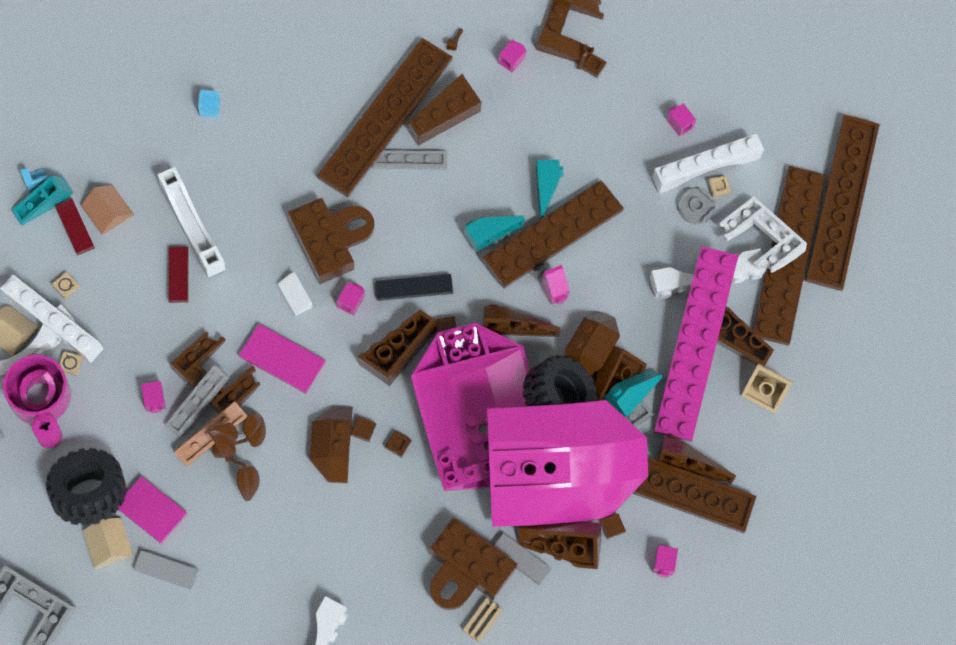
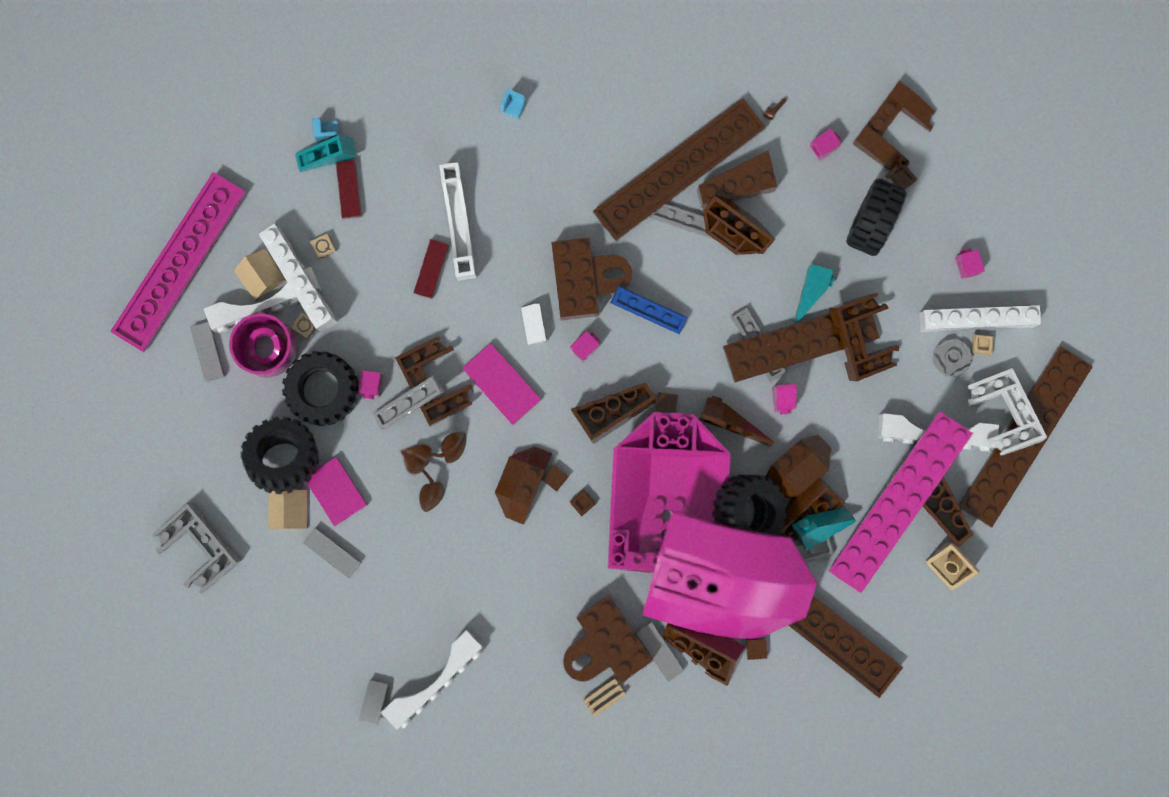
camera: 30 degrees right, 15 degrees up
(47, 431) = (261, 388): dark pink piece -> none
(101, 390) = (296, 380): none -> black tyre
(106, 208) = (384, 180): nougat slope -> none
(201, 440) = (419, 434): nougat plate -> none
(400, 246) = (648, 309): none -> blue tile
(414, 287) = (649, 353): black tile -> none
(455, 150) = (735, 227): none -> reddish brown wedge
(490, 229) = (736, 321): teal slope -> none
(581, 99) = (876, 217): none -> black tyre
(587, 196) = (846, 317): none -> reddish brown wedge
(665, 561) = (793, 700): dark pink brick -> none
(687, 458) = (847, 606): reddish brown wedge -> none
(842, 203) = (1100, 400): reddish brown plate -> none

